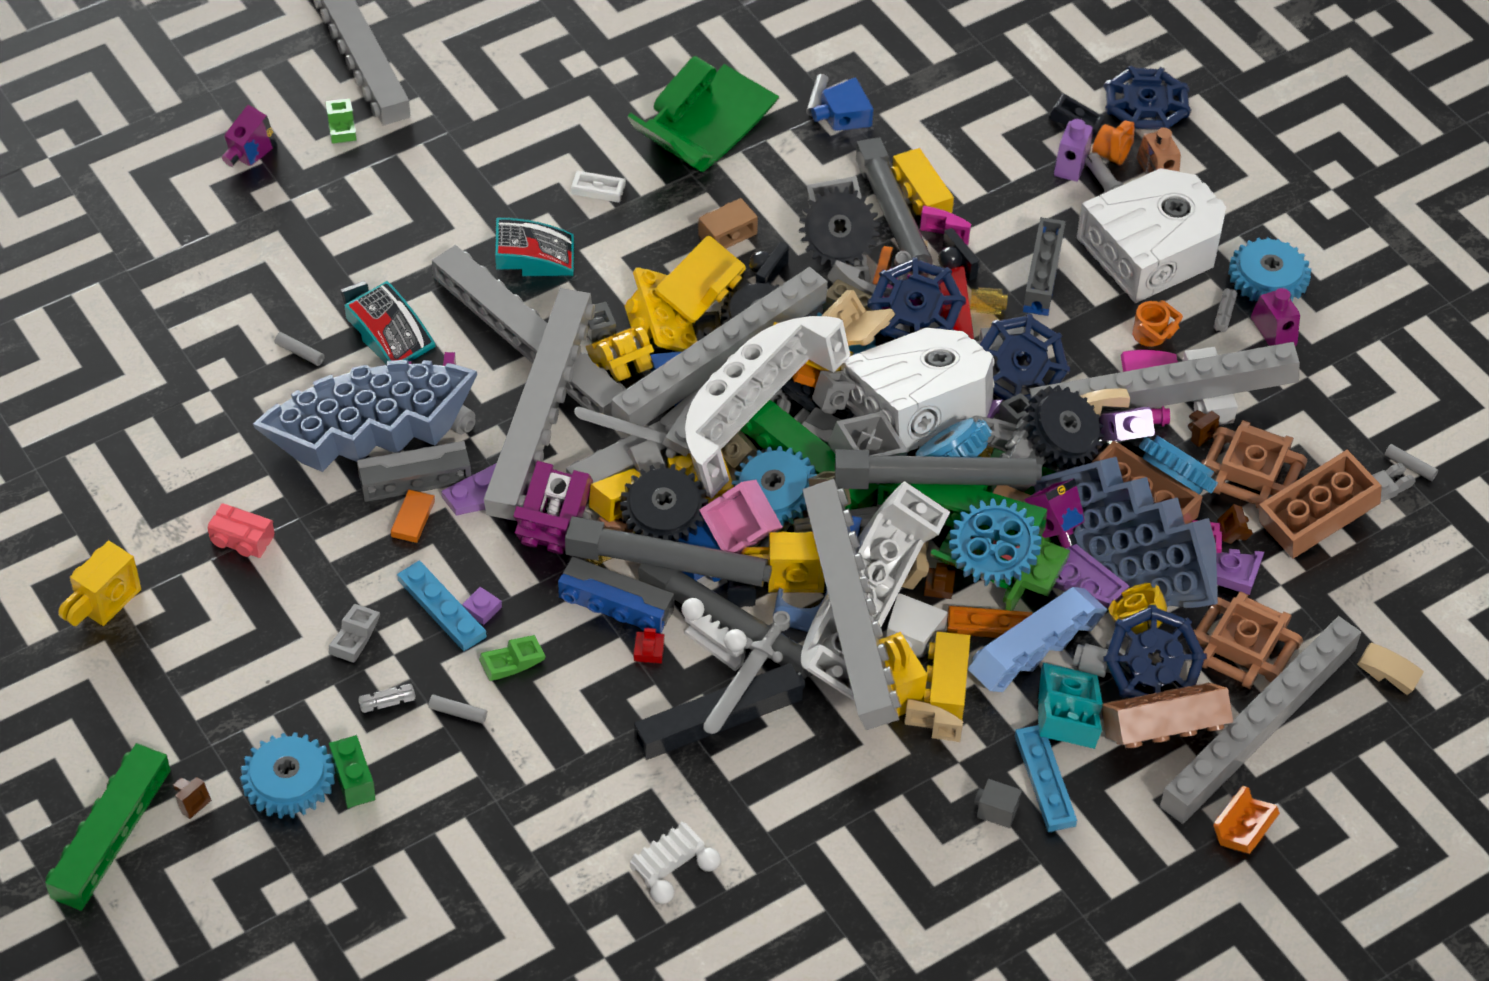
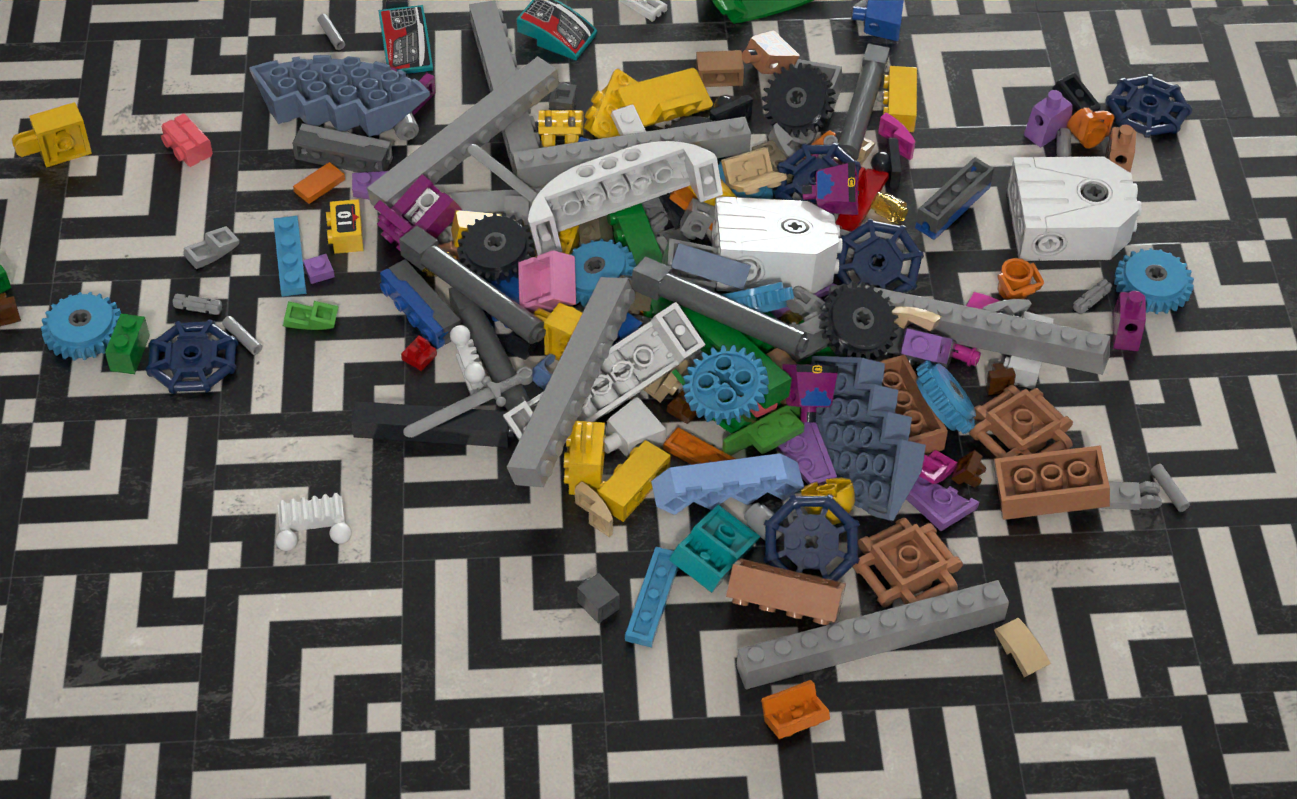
camera: 30 degrees right, 0 degrees up
(428, 767) = (192, 338): none -> dark blue plate
(479, 549) = (345, 225): none -> yellow brick
(690, 322) = (627, 120): none -> white plate
(769, 190) = (769, 53): none -> nougat torso
(895, 432) = (710, 266): none -> sand blue tile
(948, 305) = (835, 189): none -> magenta torso
(1172, 353) = (1012, 307): none -> light grey slope

